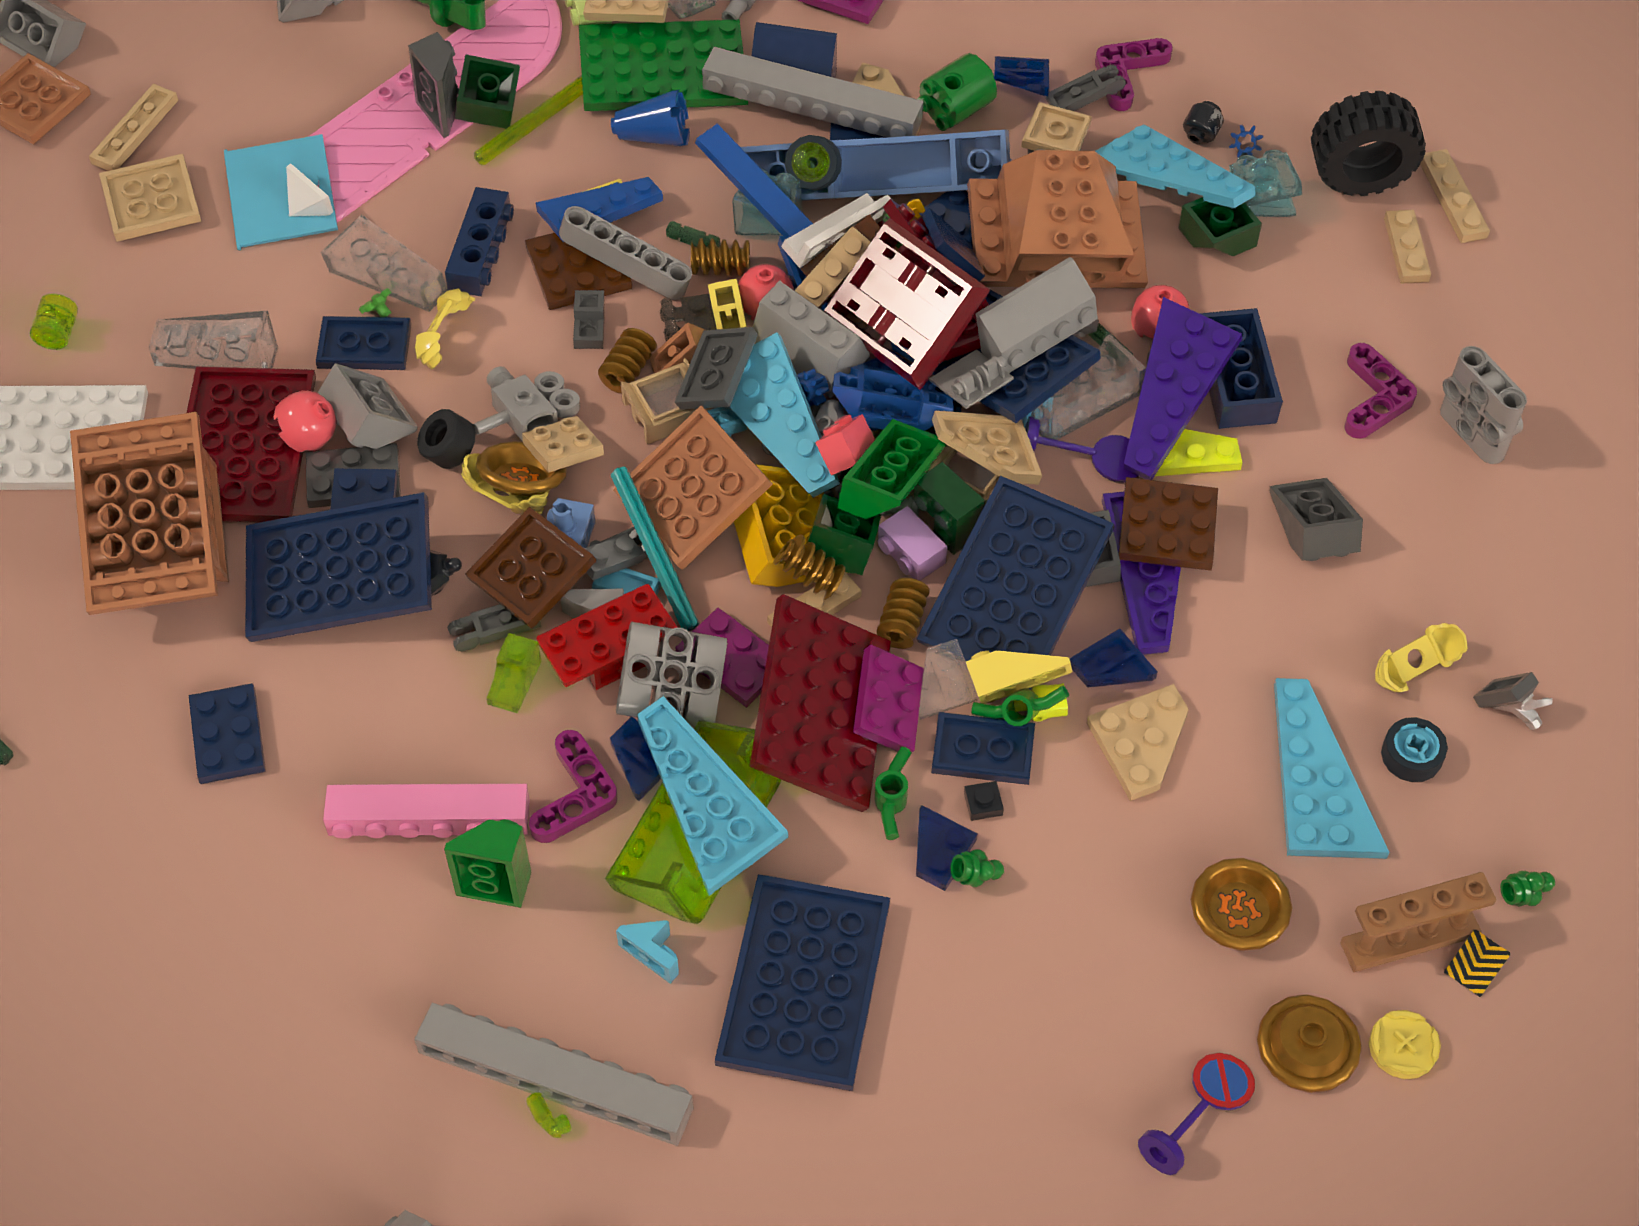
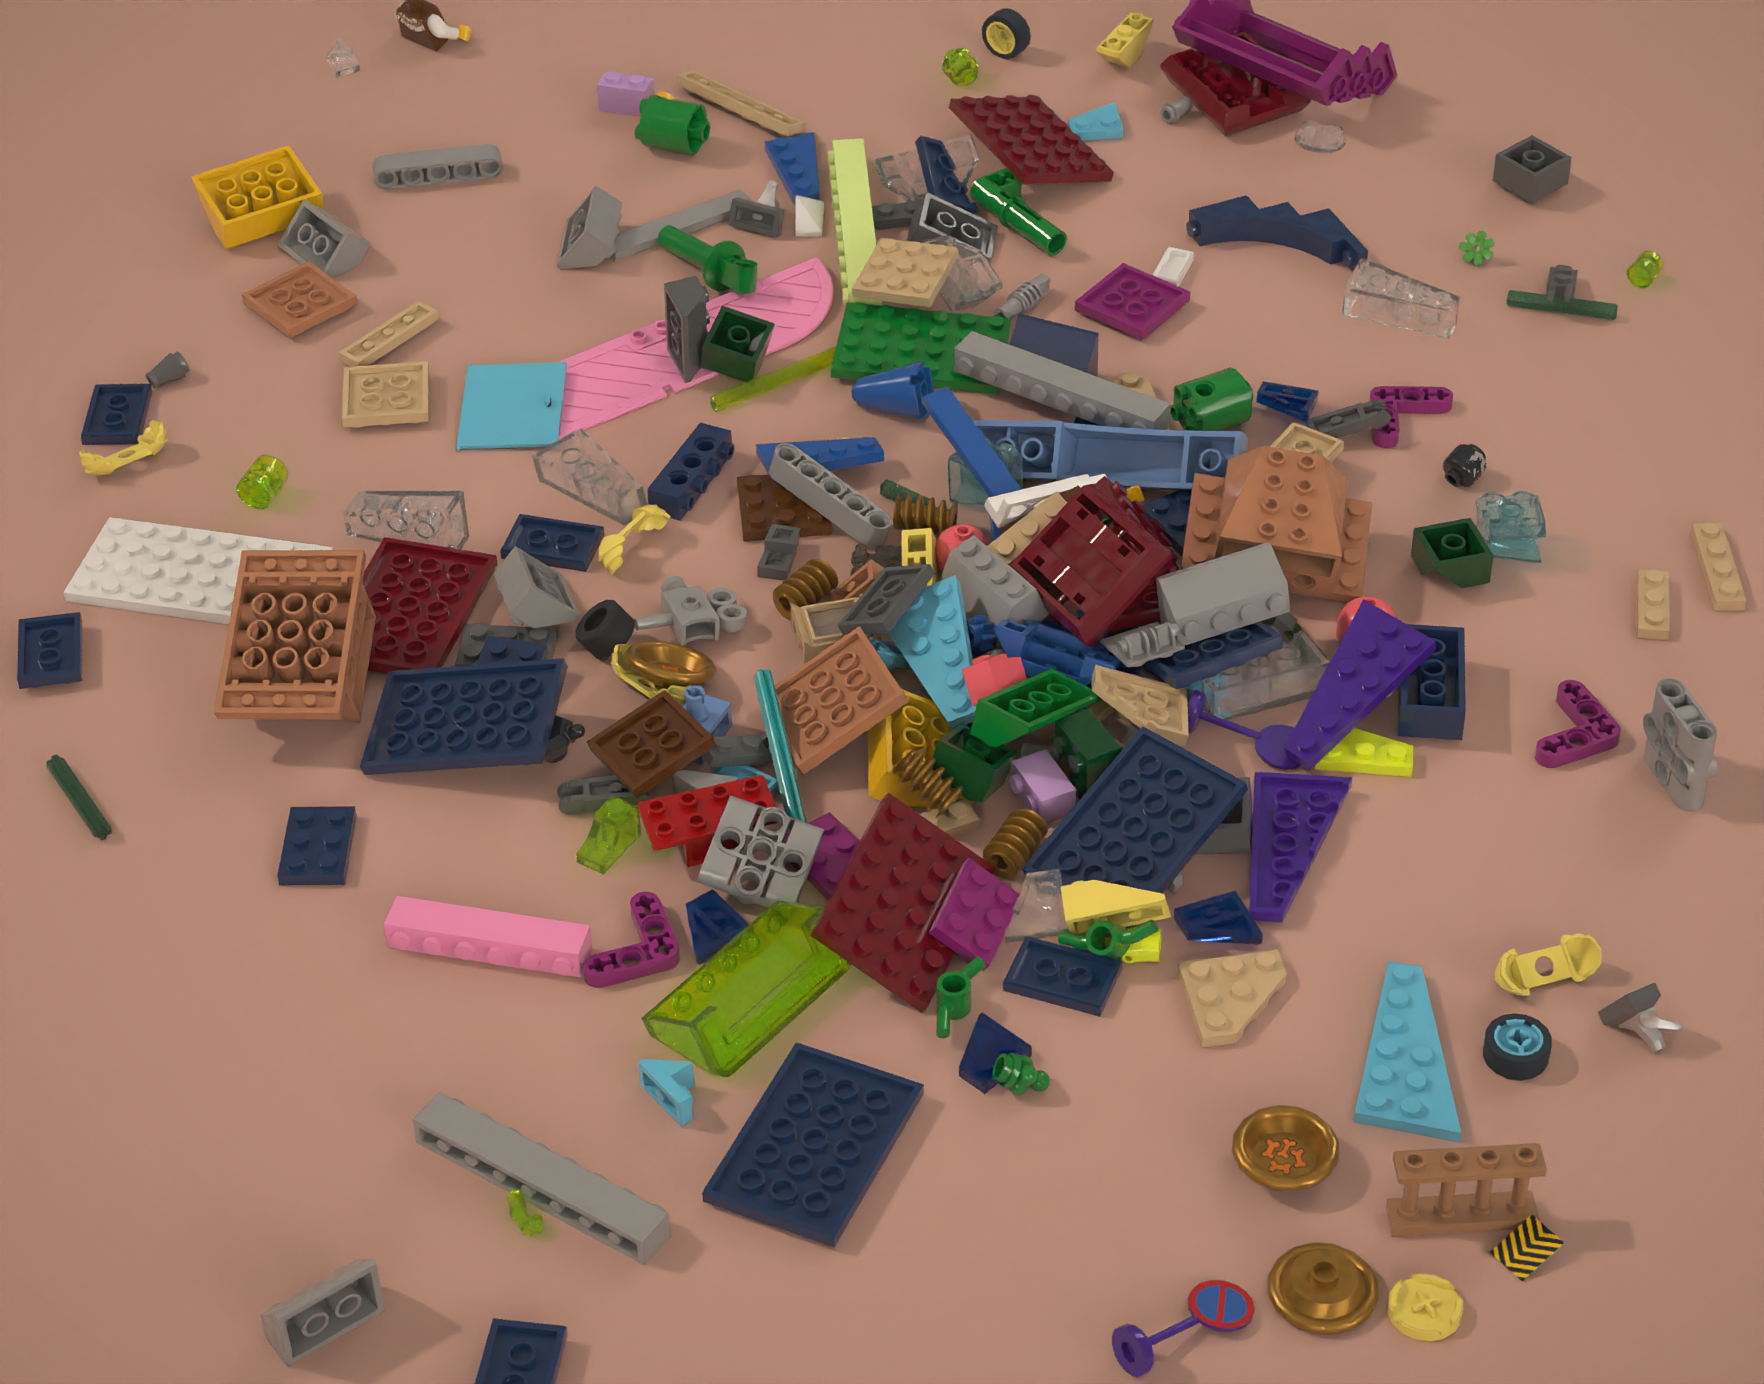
camera: 15 degrees right, 15 degrees down
(305, 196) = (533, 410): white slope -> none
(305, 420) = (473, 592): coral cylinder -> none
(377, 303) = (575, 509): bright green plant -> none
(490, 863) = (531, 981): green slope -> none
(562, 444) = (720, 649): tan plate -> none
(715, 809) = (765, 968): medium azure wing -> none
(828, 158) = (1025, 439): wheel -> none
(952, 244) = (1160, 526): dark blue tile -> none
(983, 800) = (1048, 1020): black plate -> none
(1163, 163) = (1404, 489): medium azure wing -> none
(1168, 523) = (1314, 806): reddish brown plate -> none
(1238, 143) = (1503, 478): blue gear -> none
(1317, 519) = (1476, 829): dark grey slope -> none
(1364, 120) = (1629, 467): black tyre -> none
(1526, 887) = (1601, 1188): green piece -> none

